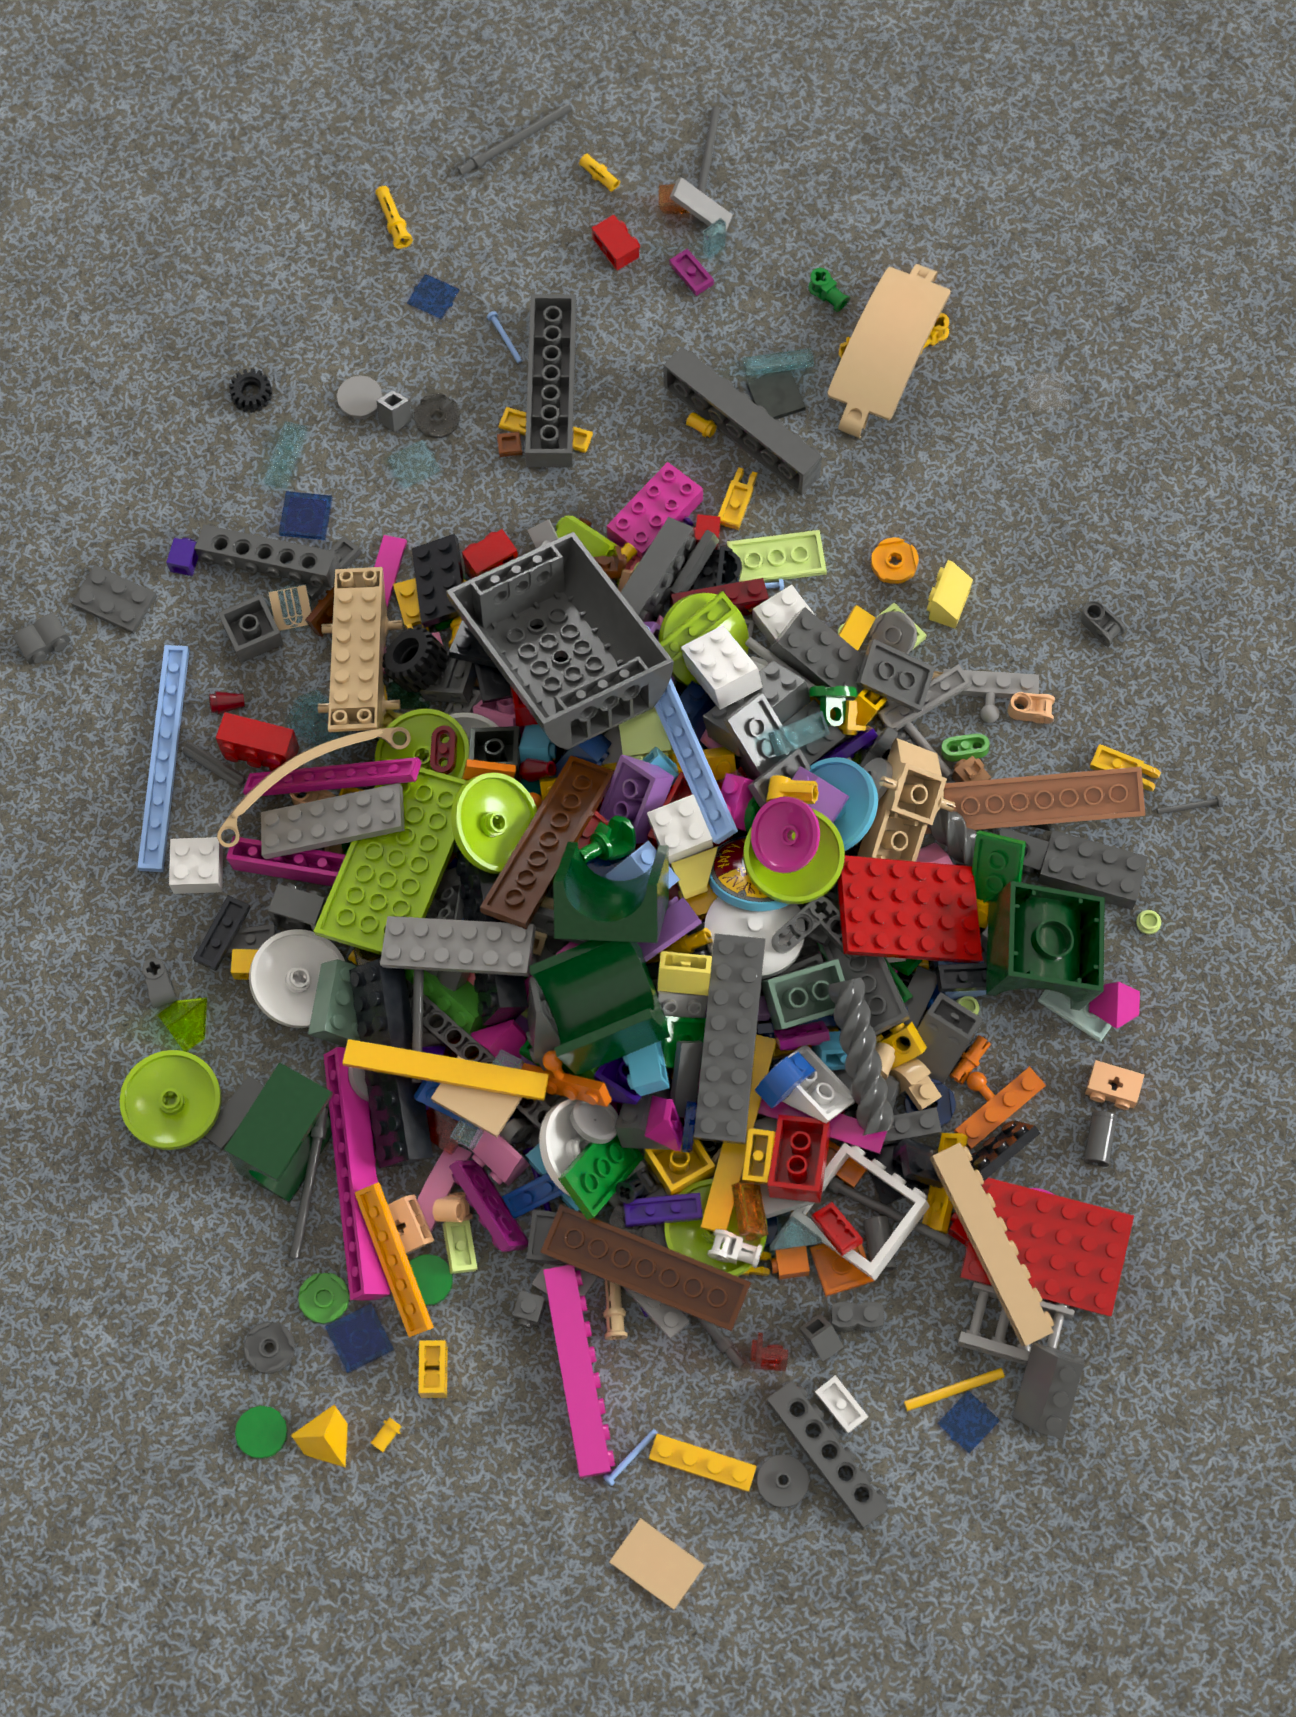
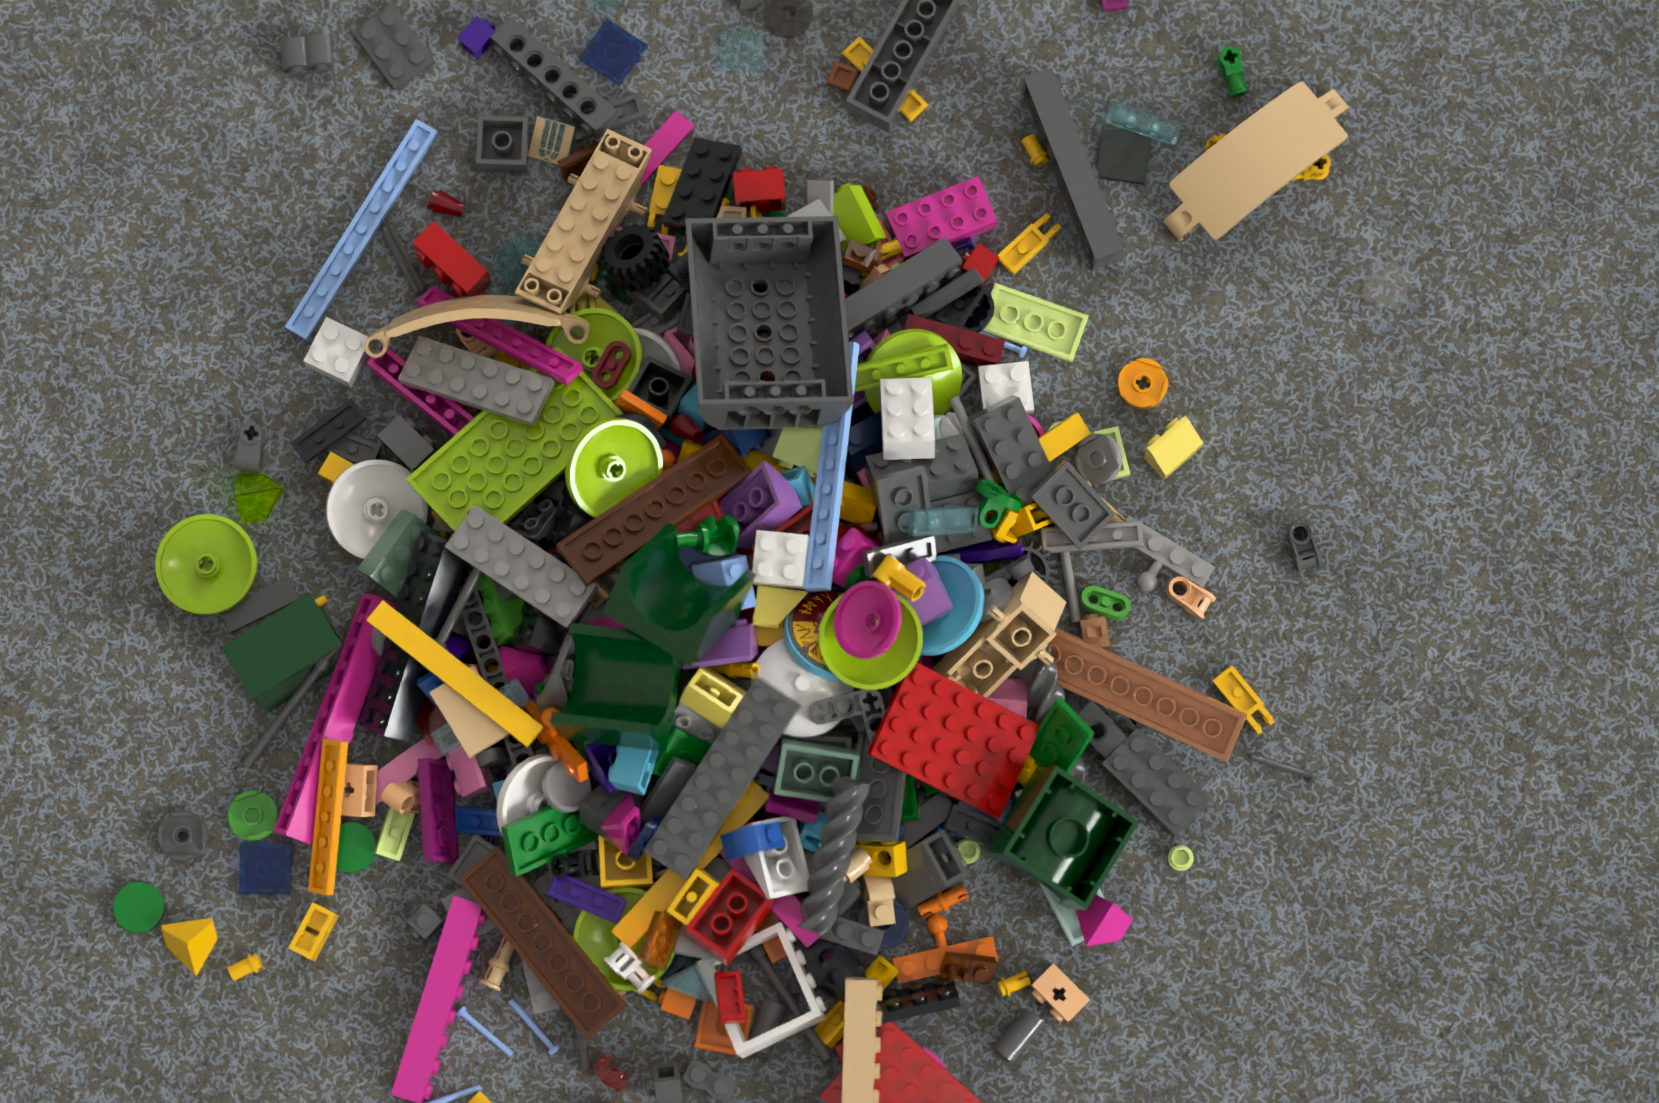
camera: 25 degrees right, 10 degrees up
(603, 1373) = (462, 1012): none -> light blue piece
(702, 1362) = (552, 1049): none -> light blue piece
(1024, 1102) = (968, 967): none -> reddish brown plate
(1069, 1098) = (1013, 983): none -> yellow pin

